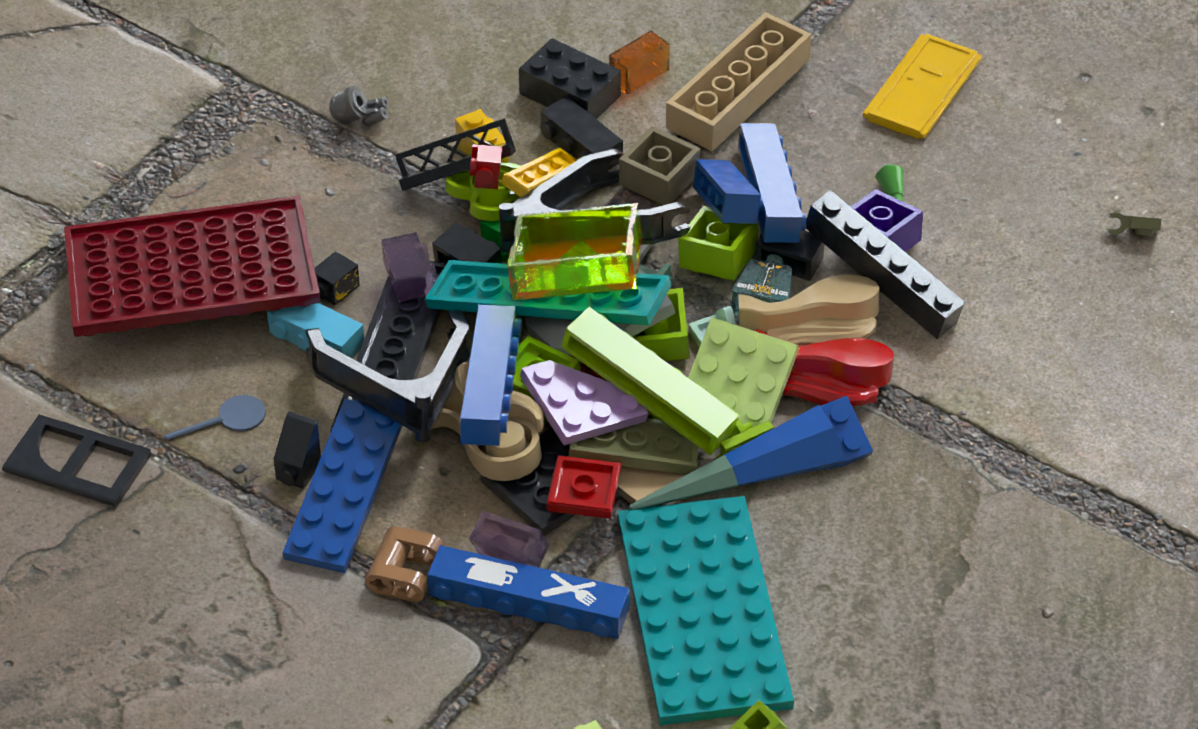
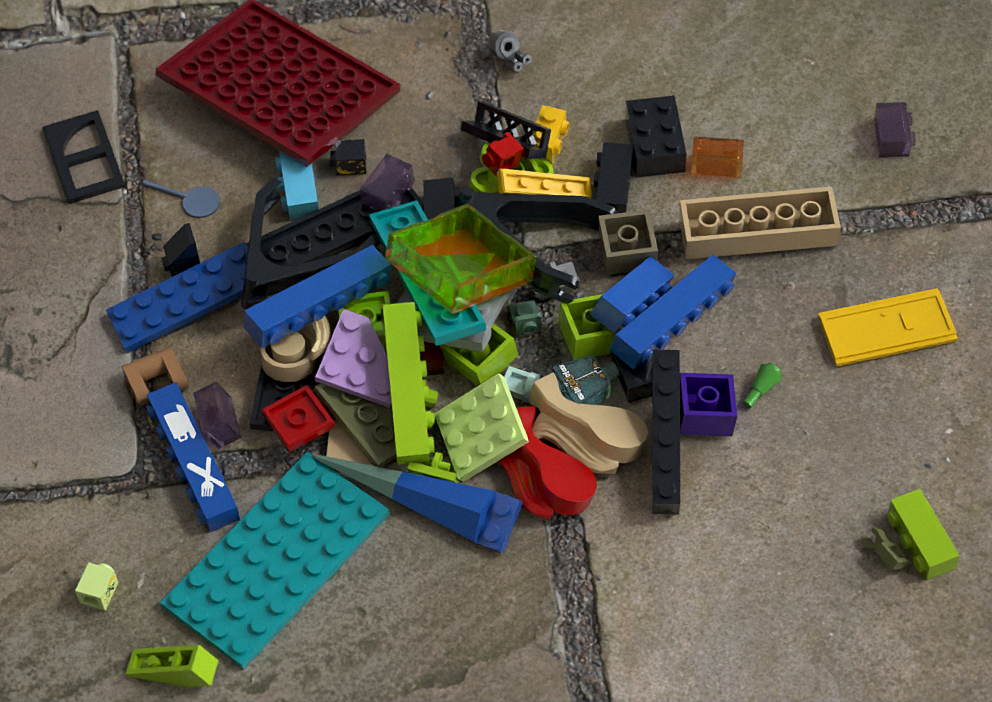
camera: 50 degrees right, 10 degrees up
(1144, 193) = (922, 534): none -> lime brick

